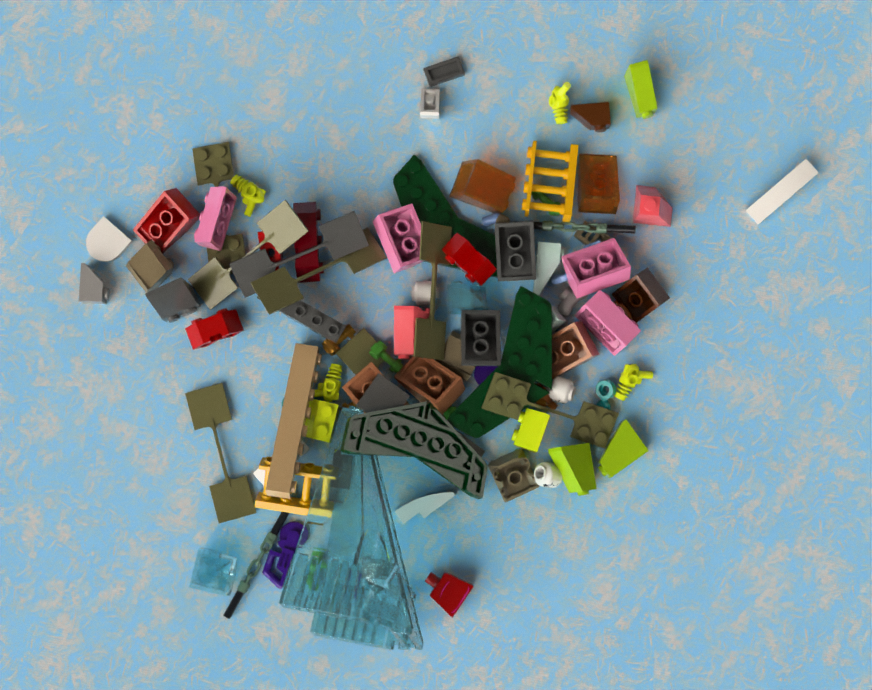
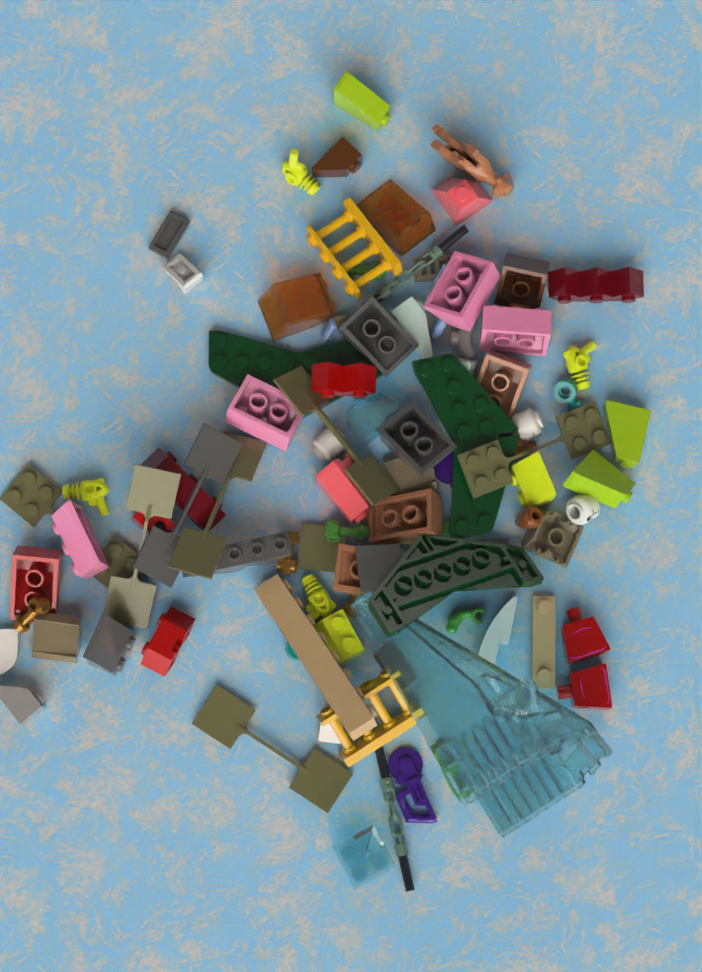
camera: 45 degrees left, 5 degrees down
(151, 236) = (36, 606): none -> pearl gold bar
(407, 473) = (456, 618): none -> bright green piece
(448, 536) = (544, 641): none -> tan plate
(474, 556) = (582, 637): none -> red torso
(507, 451) = (529, 518): none -> dark orange plant
(676, 191) = (472, 163): none -> nougat animal
(687, 339) = (595, 285): none -> dark red brick
(782, 191) = (562, 87): white slope -> none

